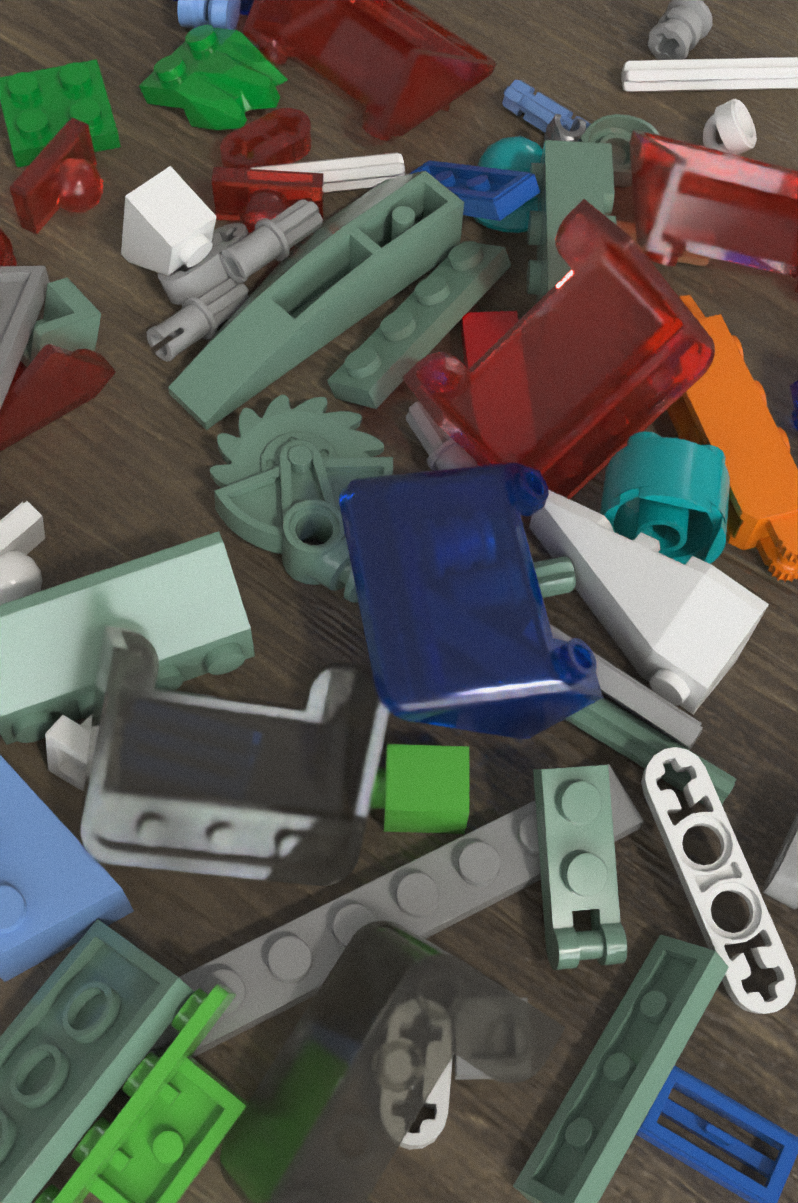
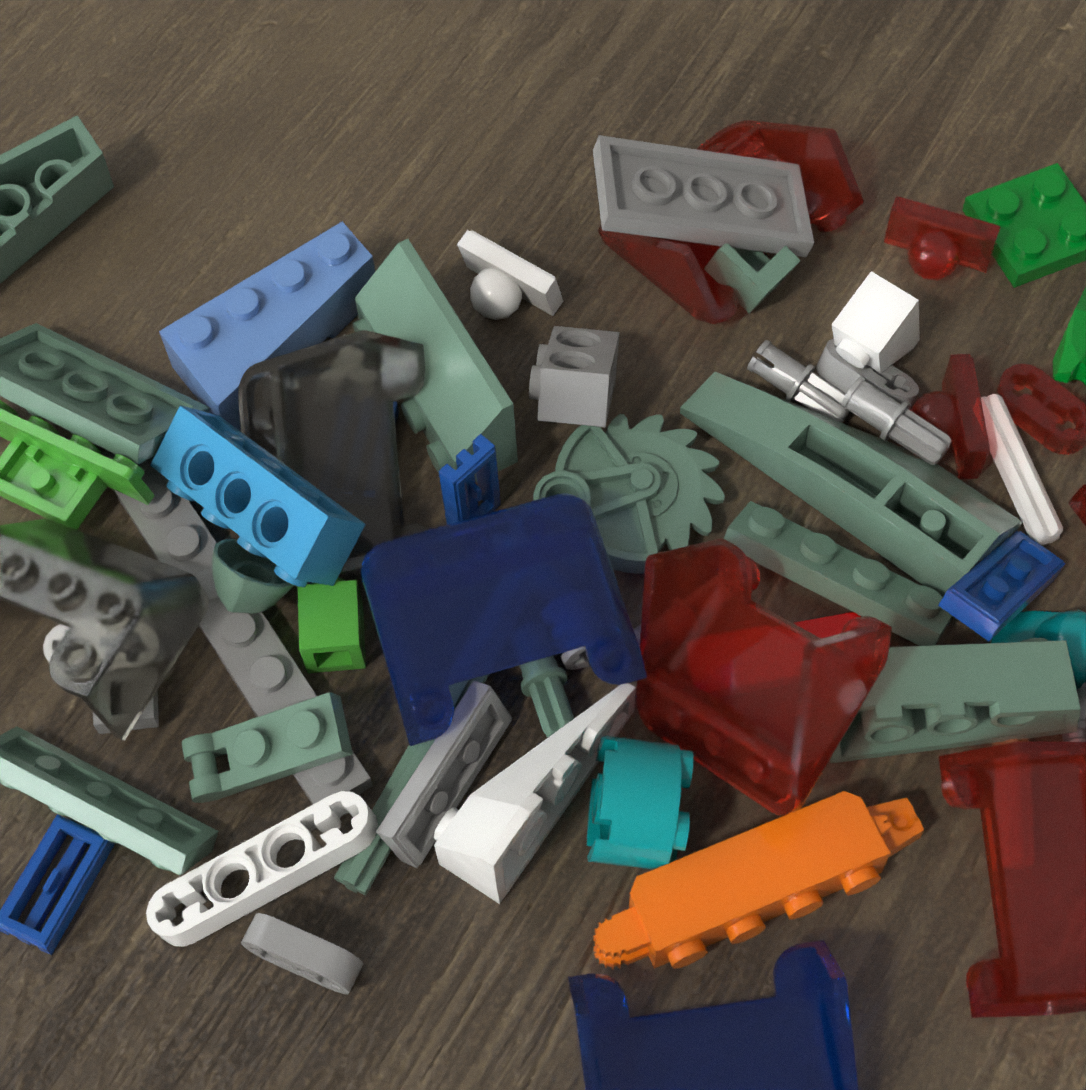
camera: 90 degrees right, 0 degrees up
(161, 494) = (575, 376): none -> light grey brick
(203, 939) = (256, 498): none -> dark azure brick
(290, 622) = (459, 485): none -> blue tile
(365, 861) = (244, 579): none -> sand green hat

